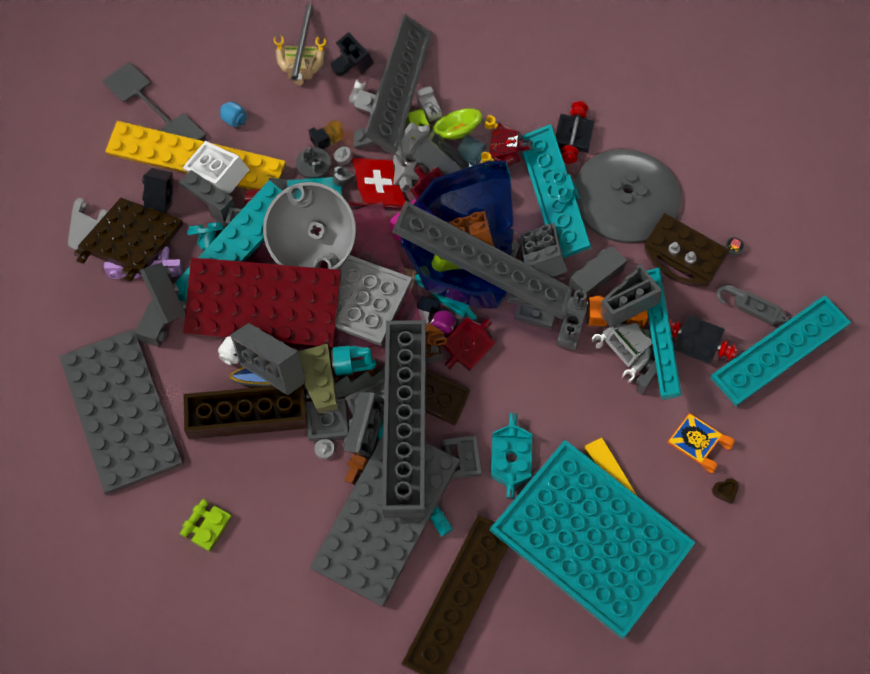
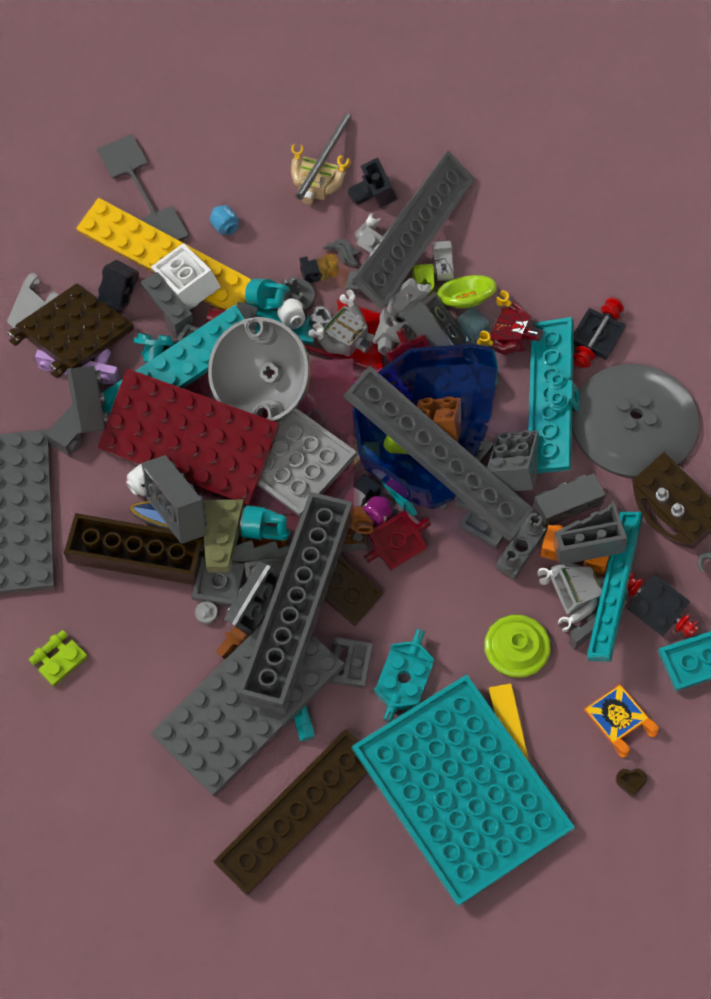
camera: 20 degrees right, 0 degrees up
(290, 166) = (265, 293): none -> teal piece
(318, 174) = (292, 313): none -> white head
(343, 155) = (330, 295): light grey tile -> none
(344, 116) = (345, 251): none -> dark grey piece
(367, 179) = (345, 330): none -> light grey torso
(595, 404) = (517, 646): none -> lime piece

